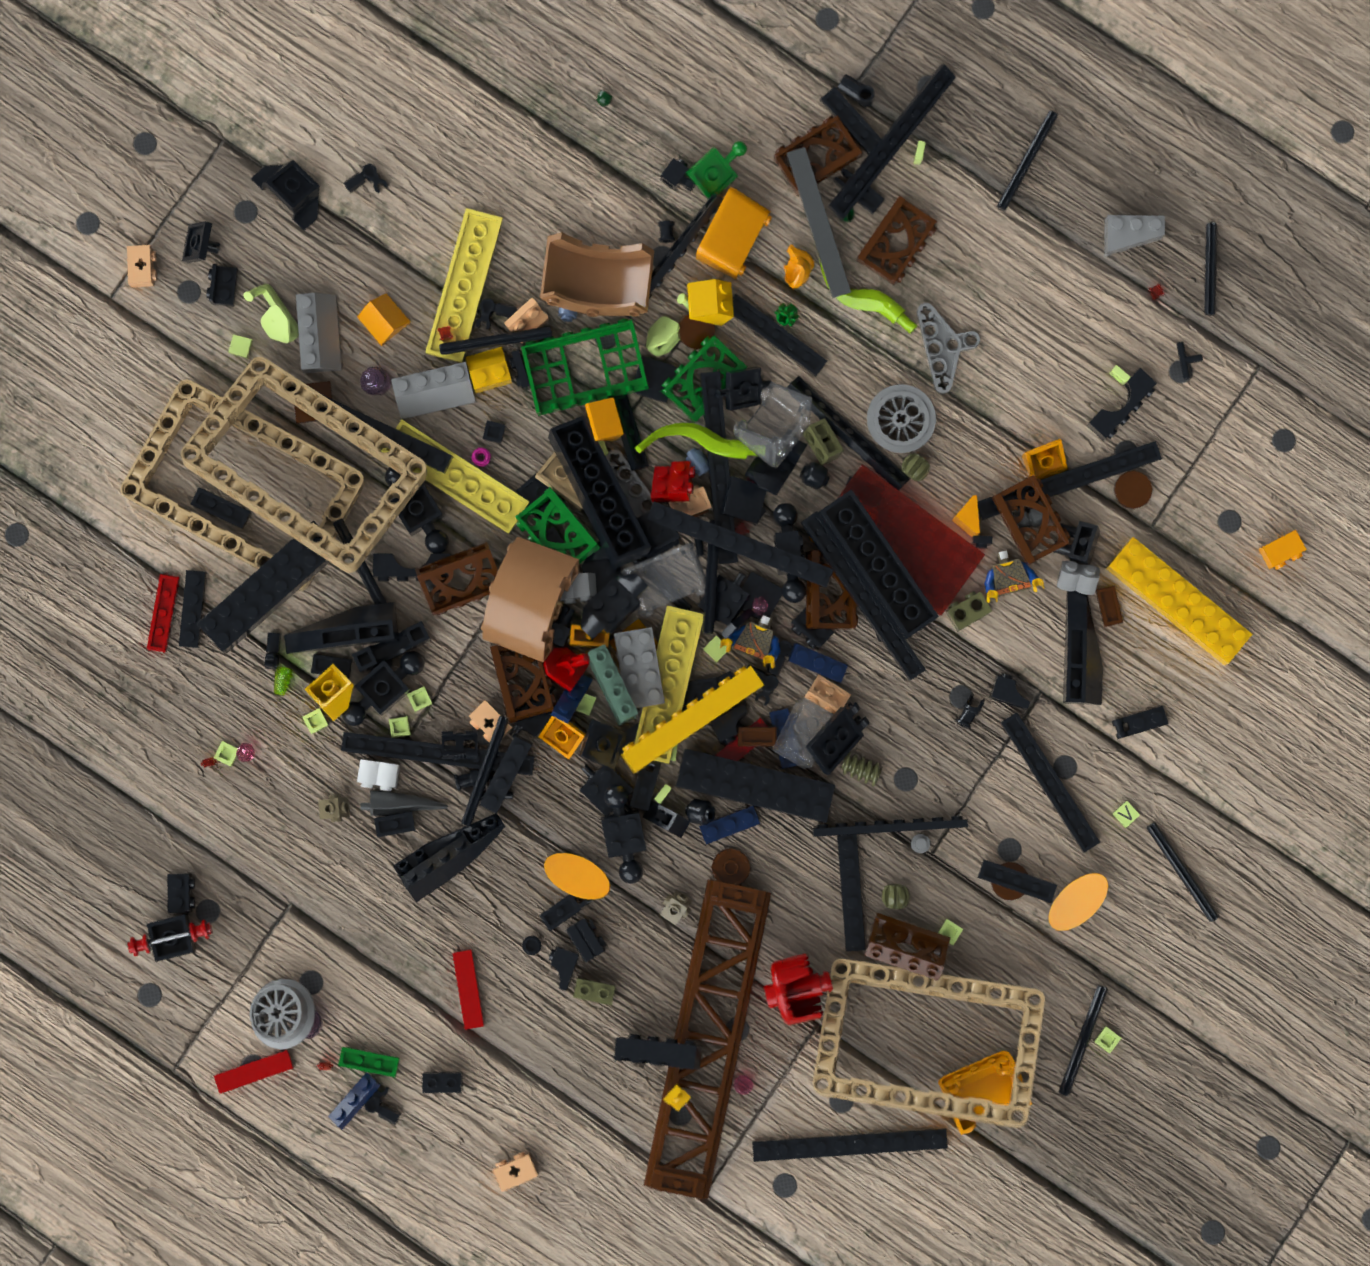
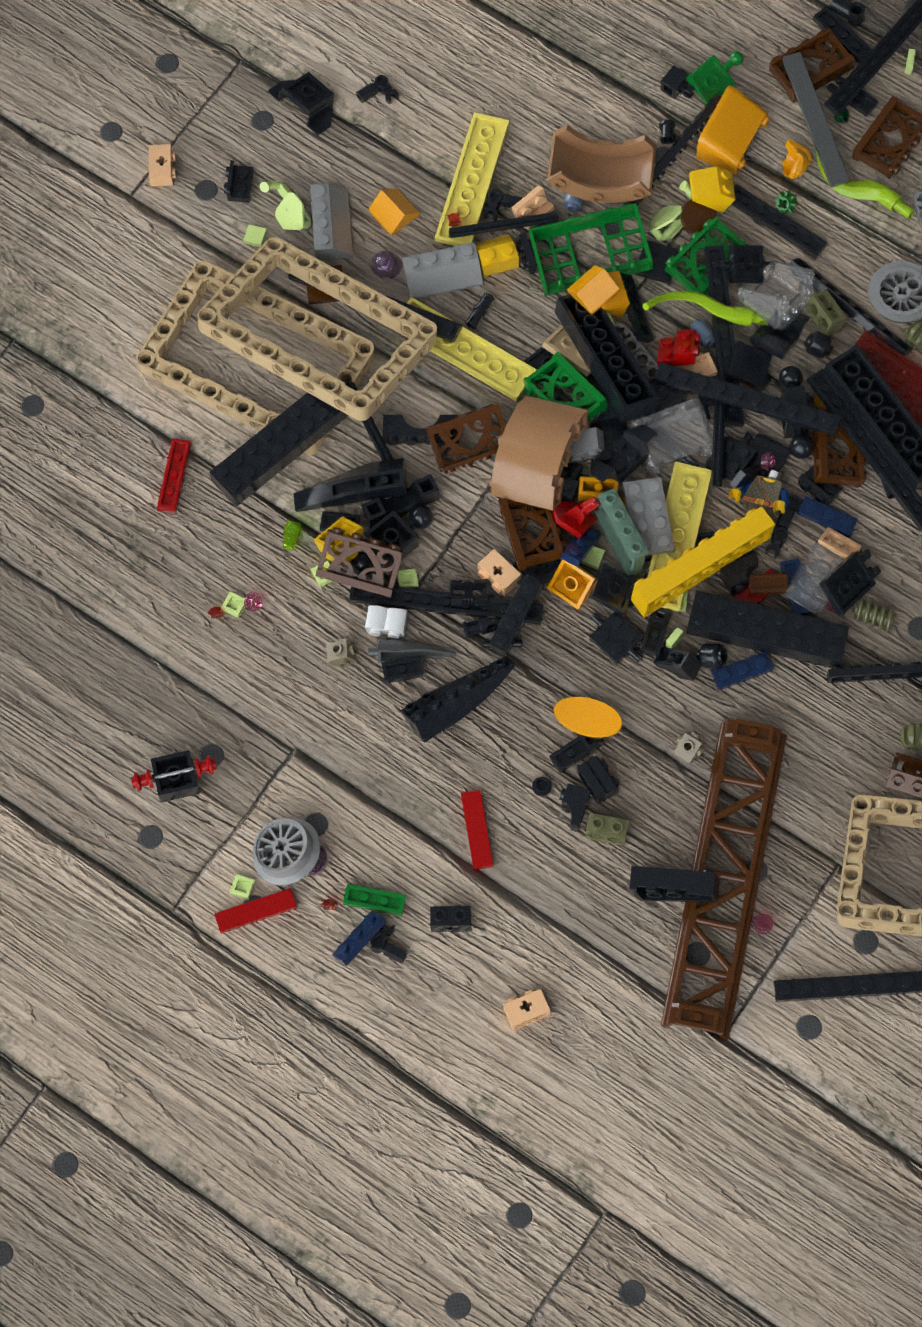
camera: 10 degrees right, 15 degrees down
(180, 893) = (184, 734): black bracket -> none
(192, 609) = (203, 465): black plate -> none
(198, 242) = (217, 143): black tile -> none
(220, 508) = (233, 378): black plate -> none
(240, 1047) = (242, 886): none -> yellowish green tile
(273, 648) = (282, 507): black bar -> none
(344, 703) = (373, 585): none -> reddish brown fence
(419, 699) = (427, 553): yellowish green tile -> none
(420, 515) = (430, 380): black brick -> none
(471, 433) = (479, 310): none -> black pin
(477, 452) = (489, 327): dark pink plate -> none
(485, 771) = (494, 614): black axle -> none
(494, 432) = (501, 309): black plate -> none
(586, 421) = (593, 289): none -> light orange slope
(604, 98) = (605, 18): dark green hinge -> none
(623, 833) = (634, 674): black brick -> none
(677, 1097) = (694, 928): yellow bracket -> none
(713, 649) = (724, 505): yellowish green tile -> none
(731, 867) = (744, 707): reddish brown tile -> none
(797, 989) = (815, 823): red piece -> none
(851, 893) = (868, 736): black plate -> none

